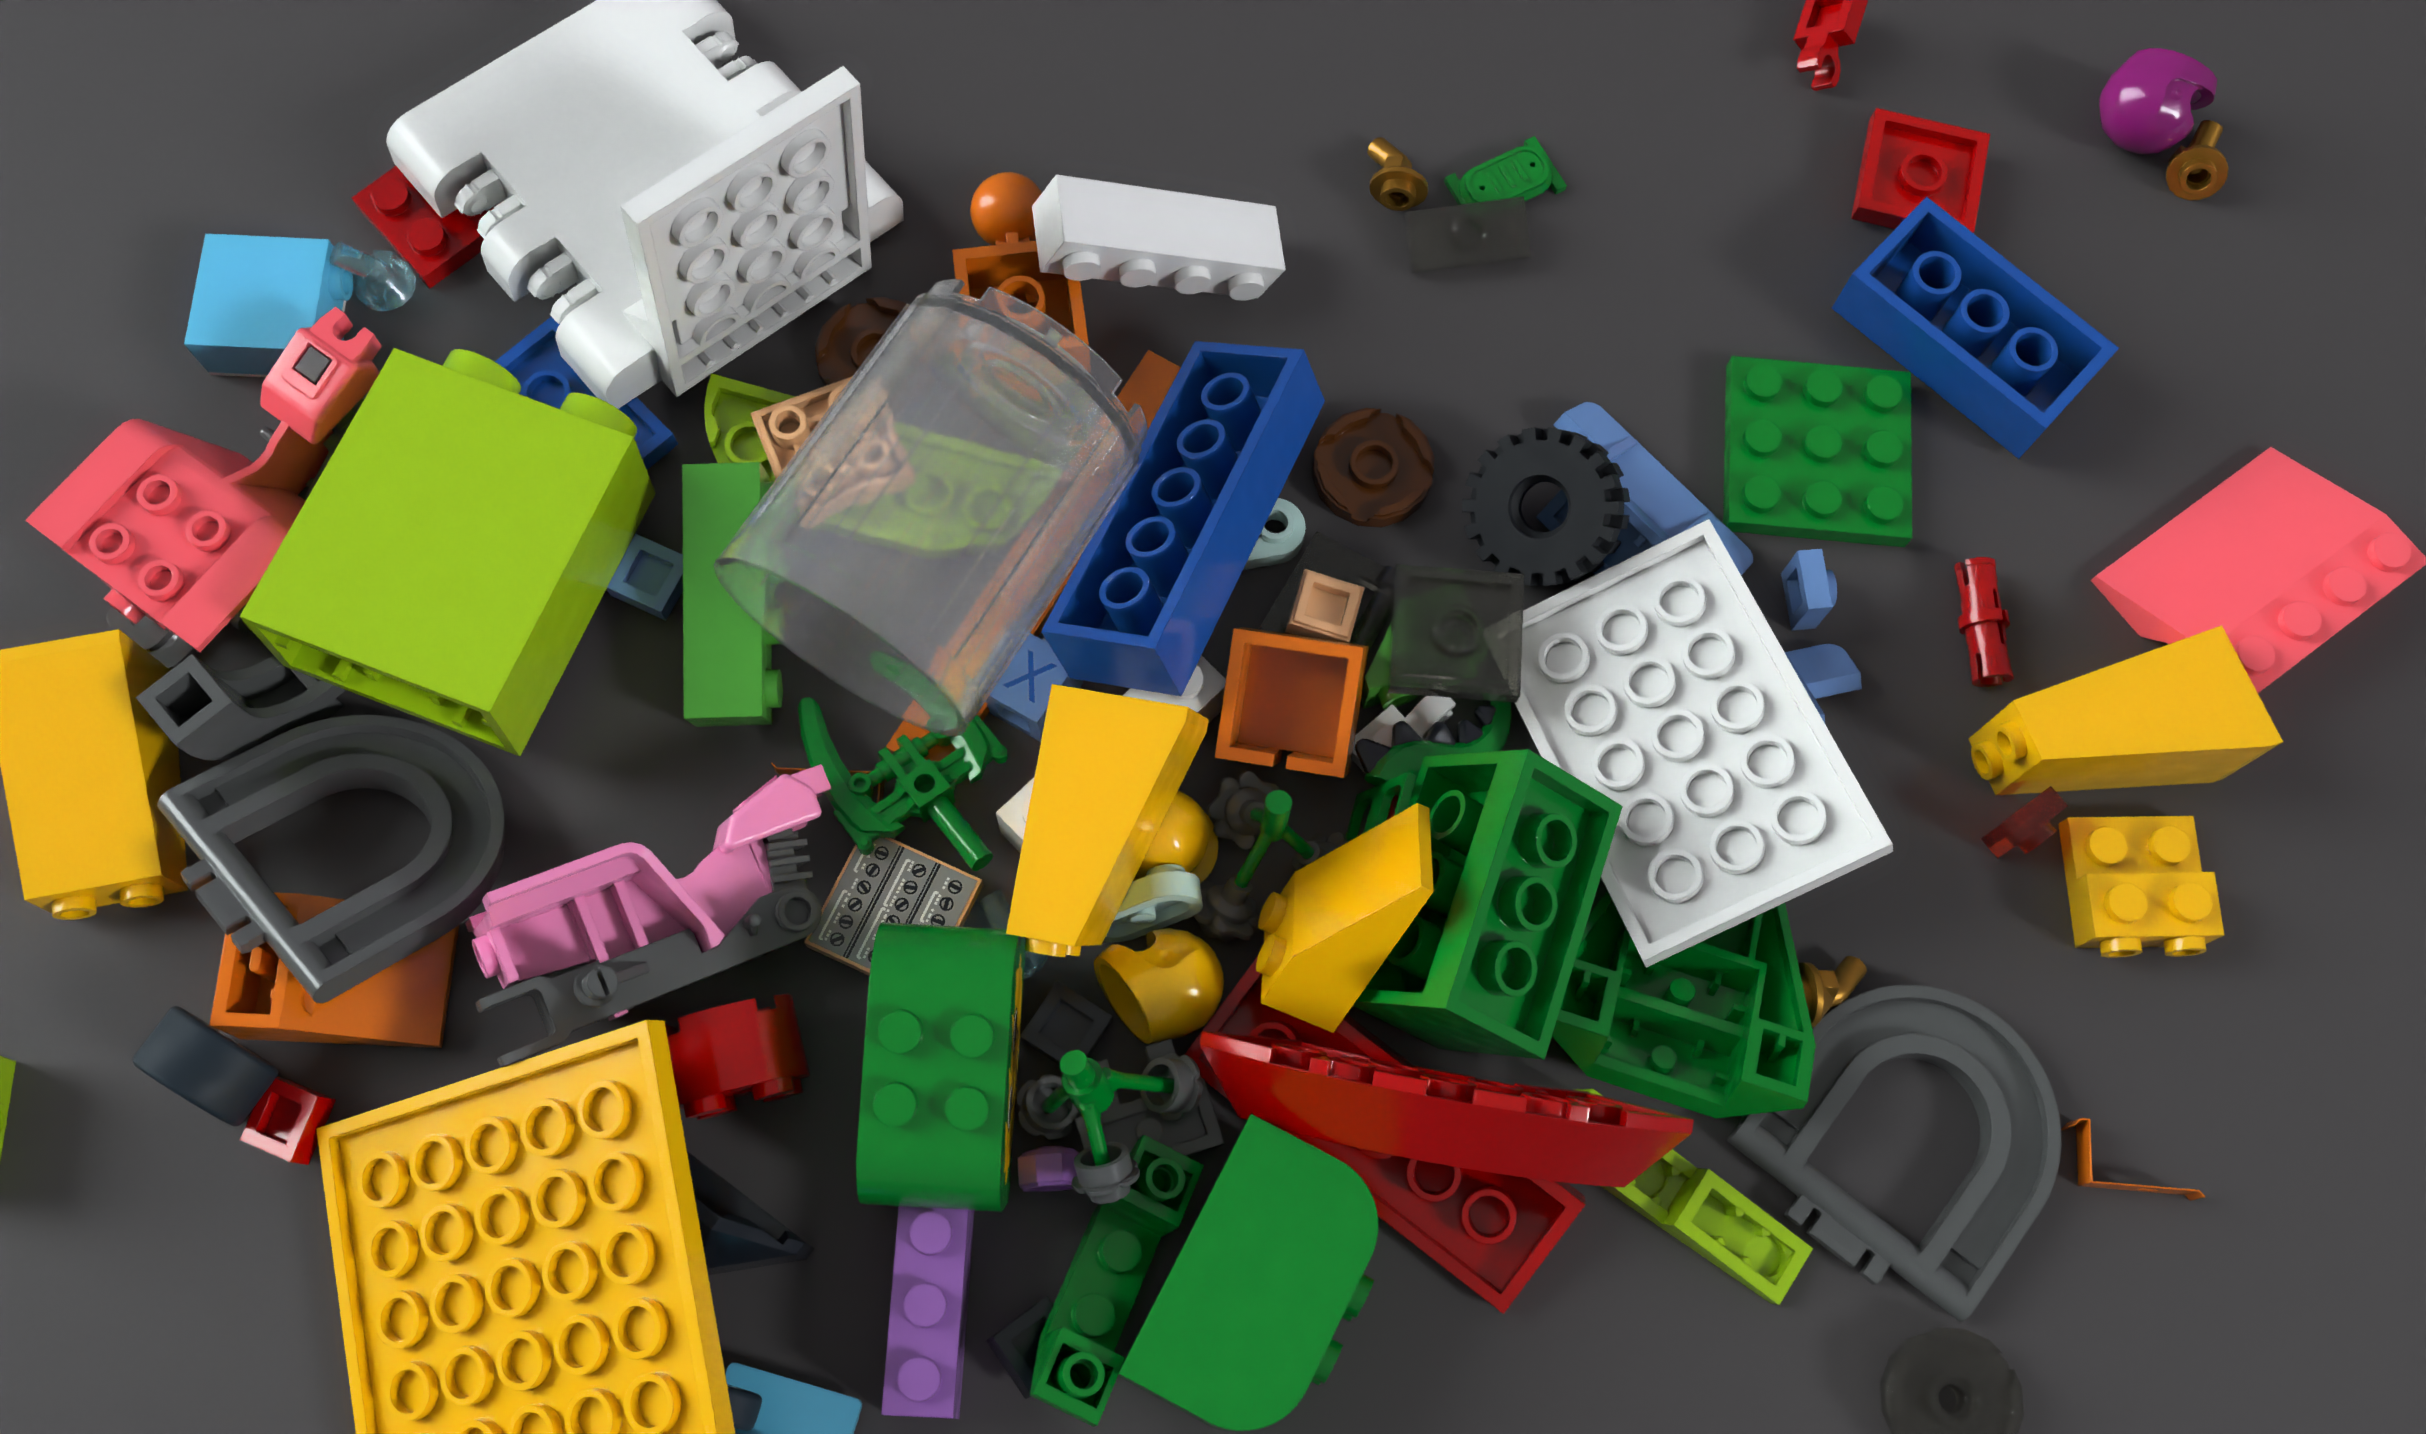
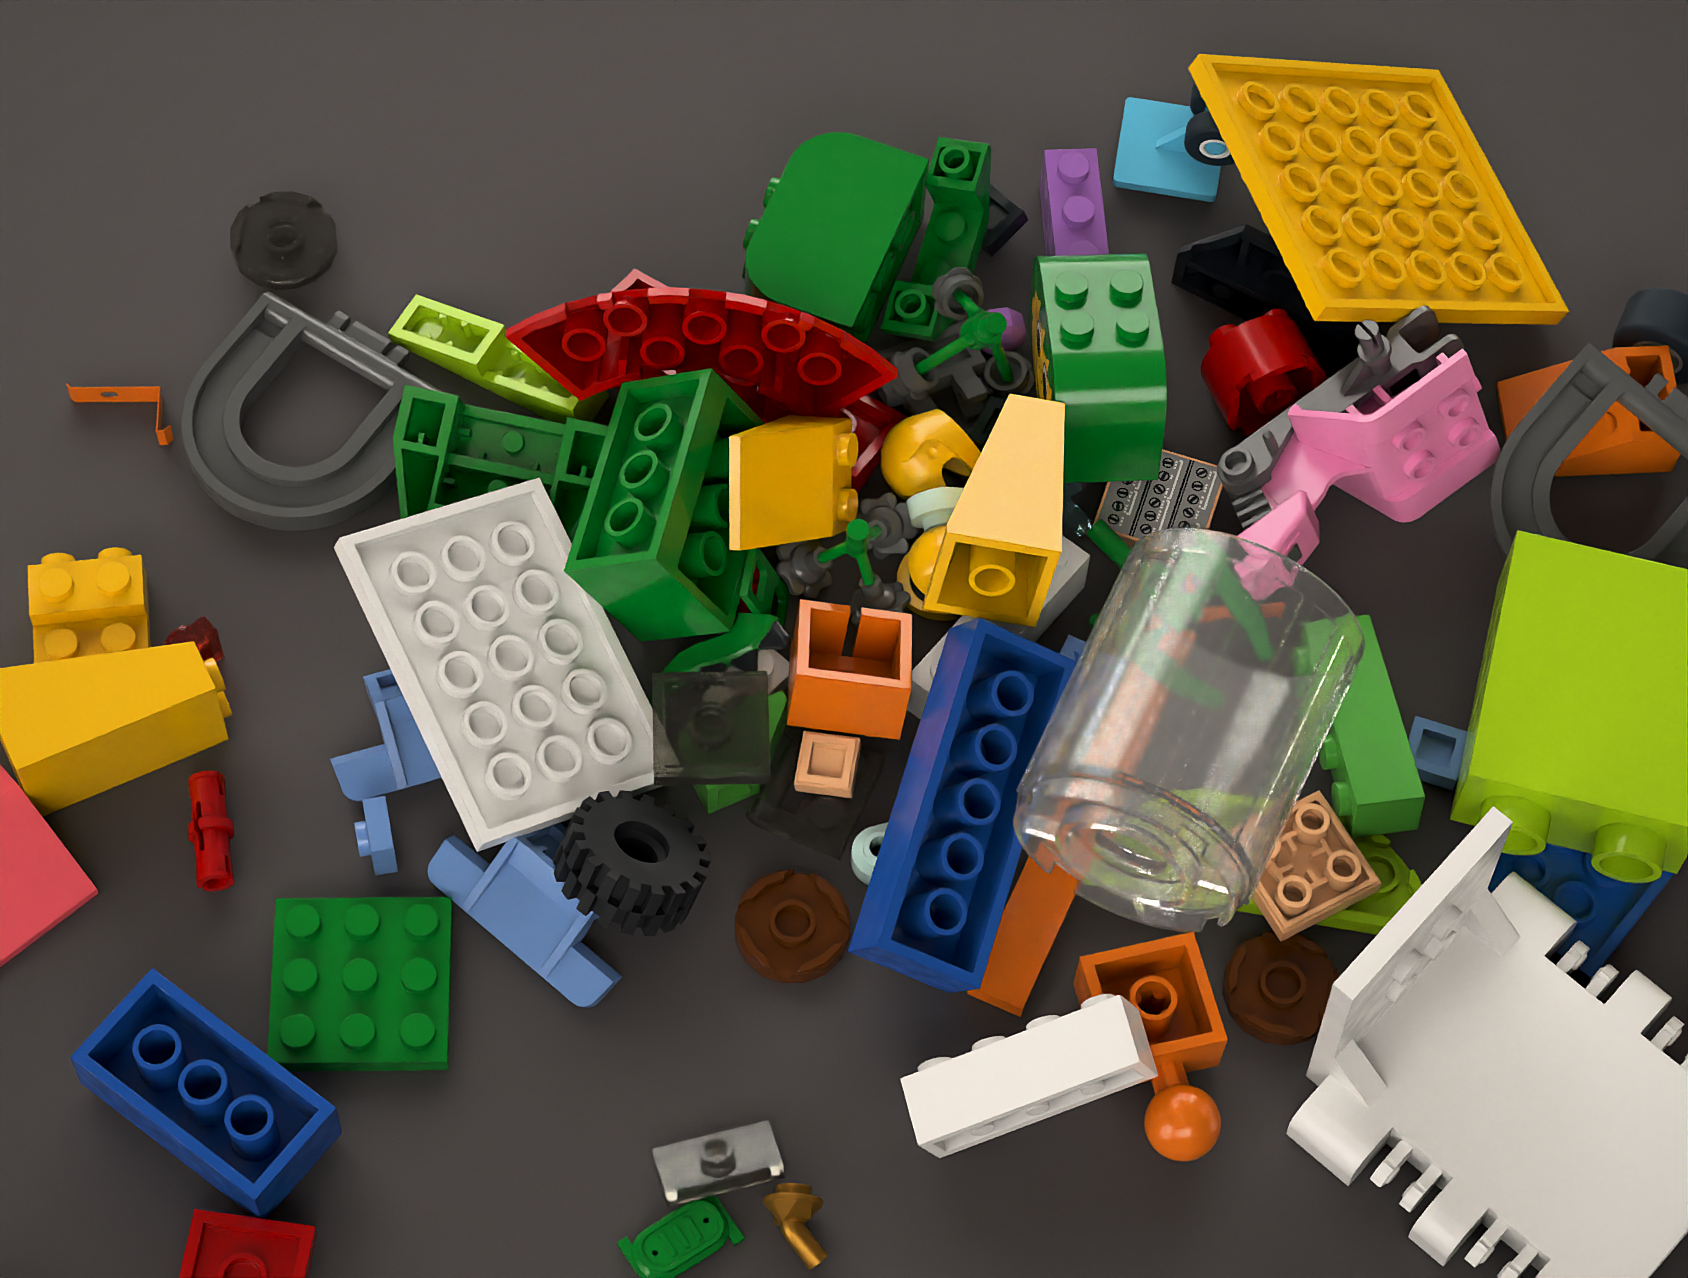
camera: 175 degrees right, 10 degrees down
(287, 1121) = (1592, 318): red plate -> none
(1829, 988) = (380, 504): pearl gold plate -> none

